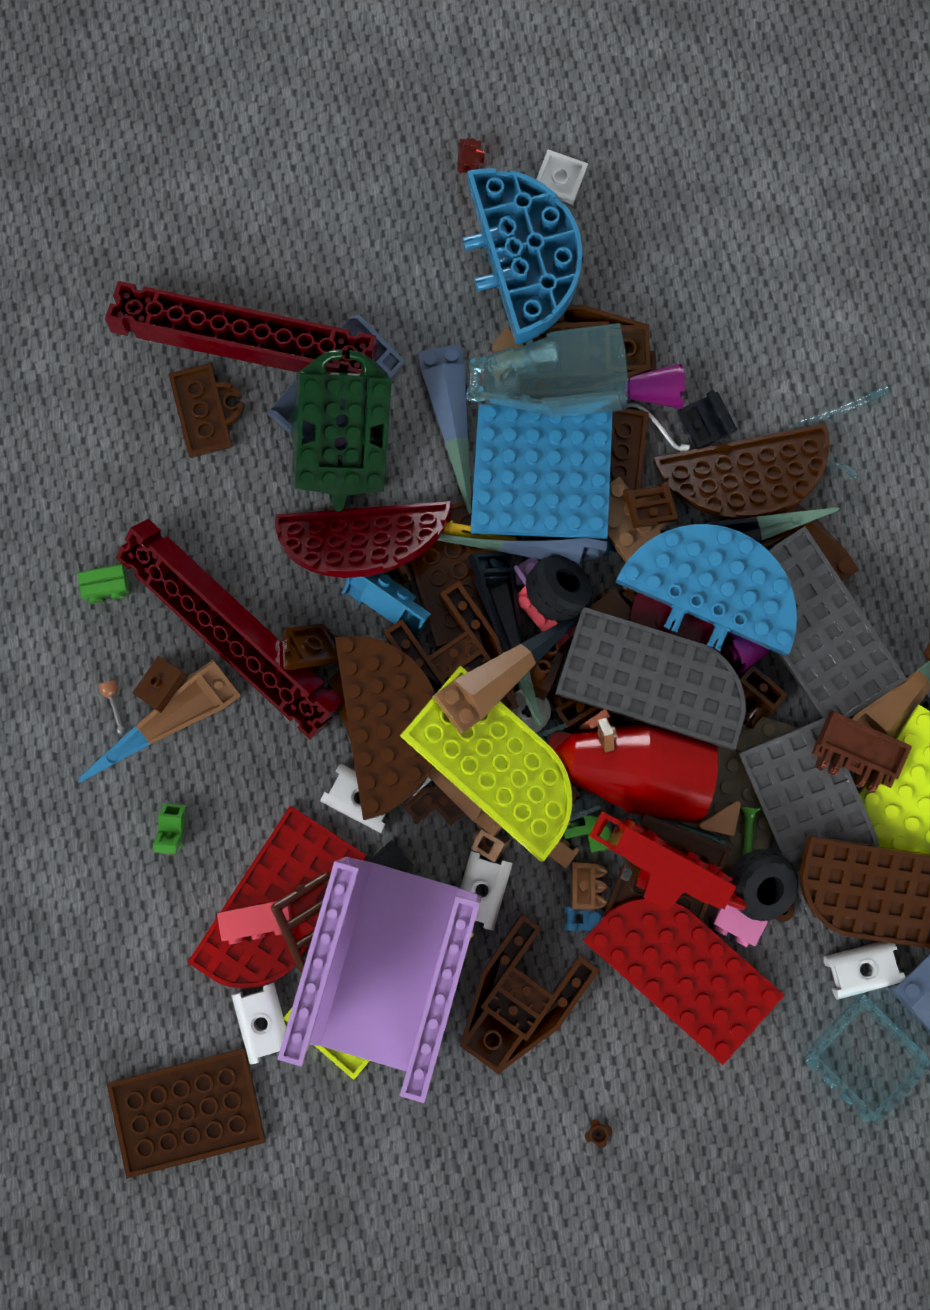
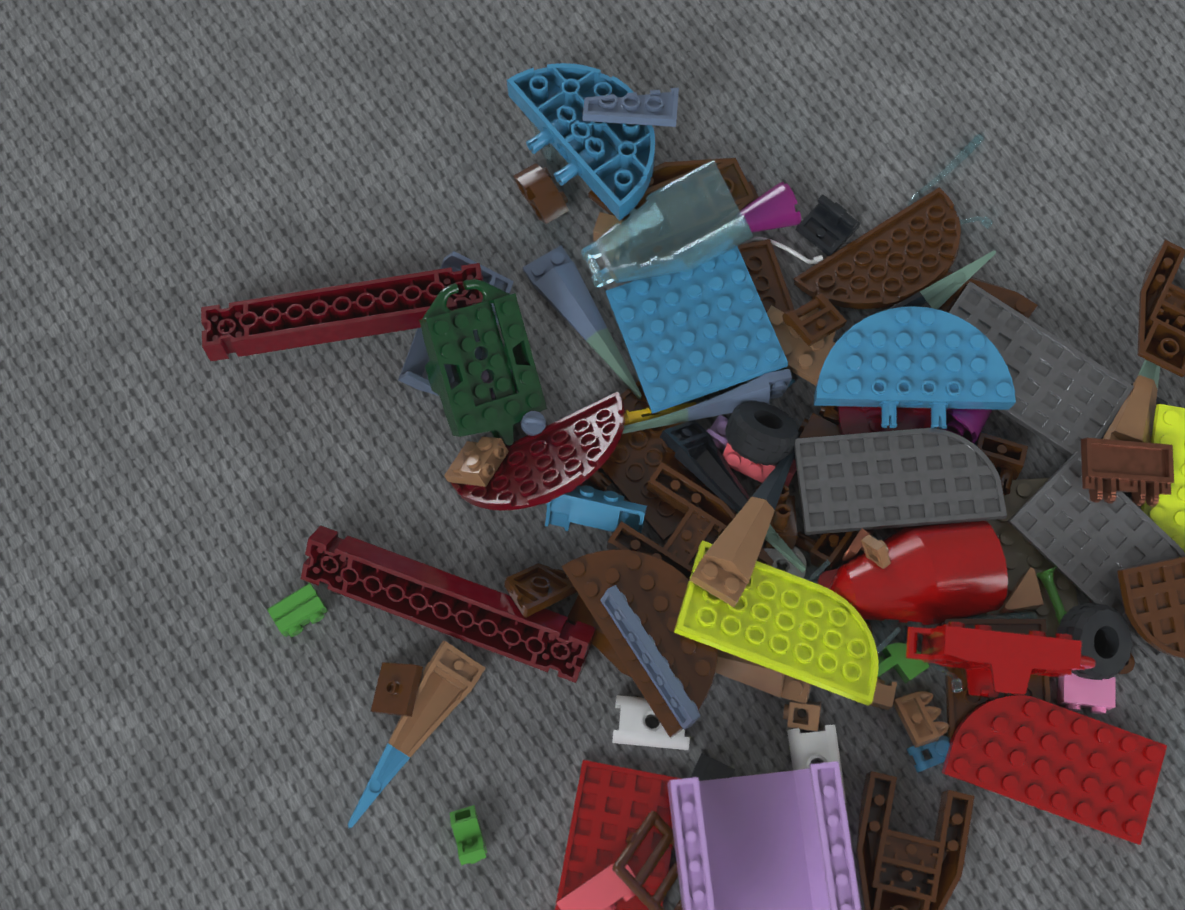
camera: 20 degrees left, 10 degrees down
(109, 690) = (345, 717): hinge -> none
(204, 409) = (333, 400): reddish brown plate -> none
(304, 515) = (477, 462): none -> medium nougat plate
(365, 500) = (533, 423): none -> sand blue tile
(374, 755) = (650, 658): none -> sand blue plate
(430, 799) = (728, 692): reddish brown plate -> none
(462, 289) = (541, 193): none -> reddish brown brick
(469, 155) = (496, 73): clear red brick -> none
(562, 175) = (591, 54): white plate -> none
(579, 250) = (647, 109): none -> sand blue wing

